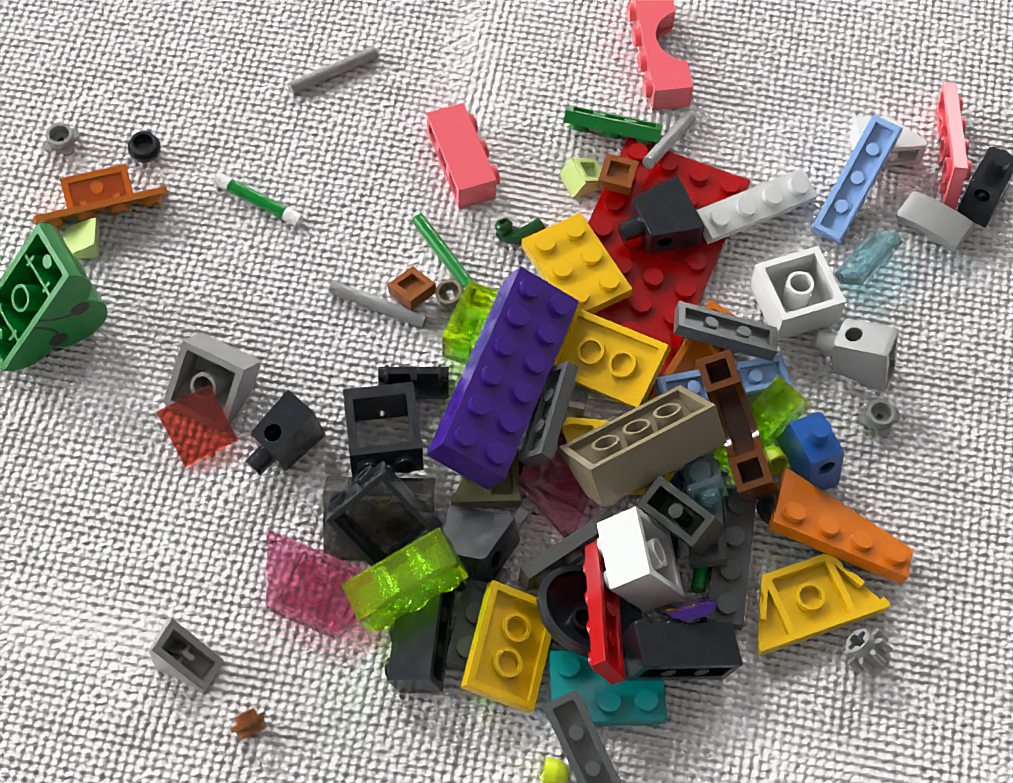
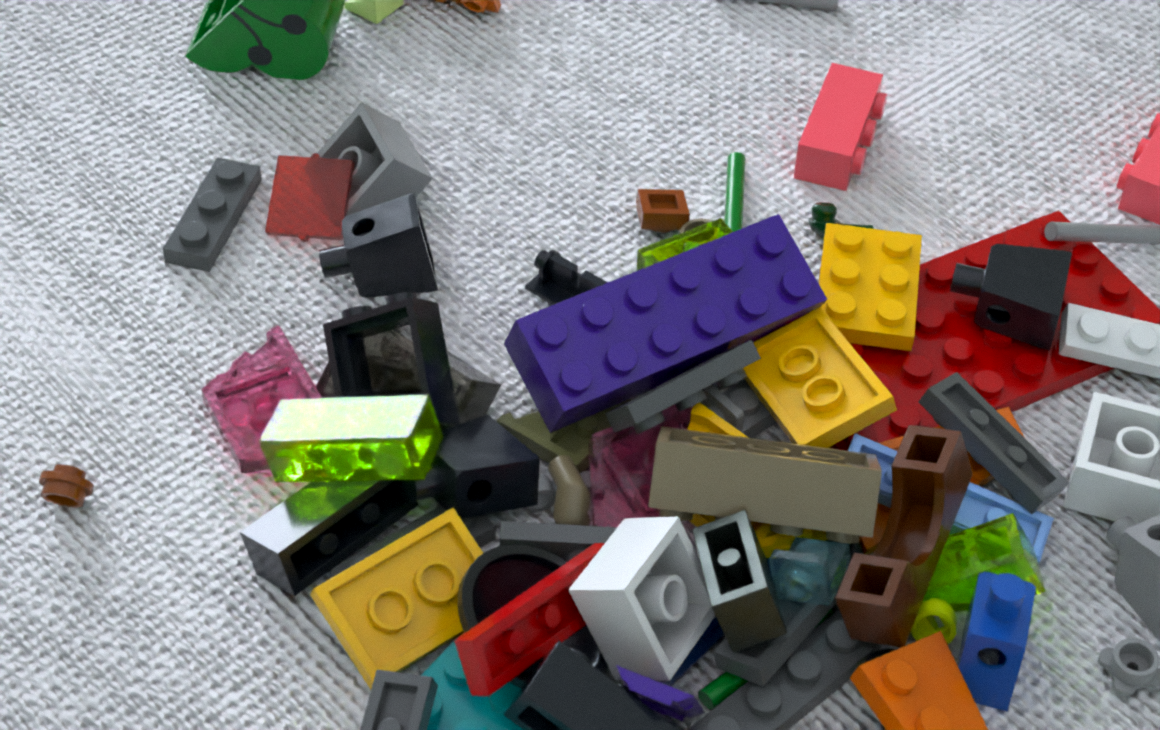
camera: 40 degrees right, 15 degrees down
(140, 477) = (212, 214): none -> dark grey plate
(184, 656) = (71, 378): light grey slope -> none
(258, 199) = (583, 58): green bar -> none
(378, 304) = (611, 205): light grey bar -> none
(382, 403) = (500, 280): black window -> none
(534, 521) = (572, 494): none -> dark tan arm
(581, 176) = (968, 219): yellowish green slope -> none
(612, 124) = (1046, 188): green plate -> none
(618, 174) = (1004, 223): dark orange plate -> none

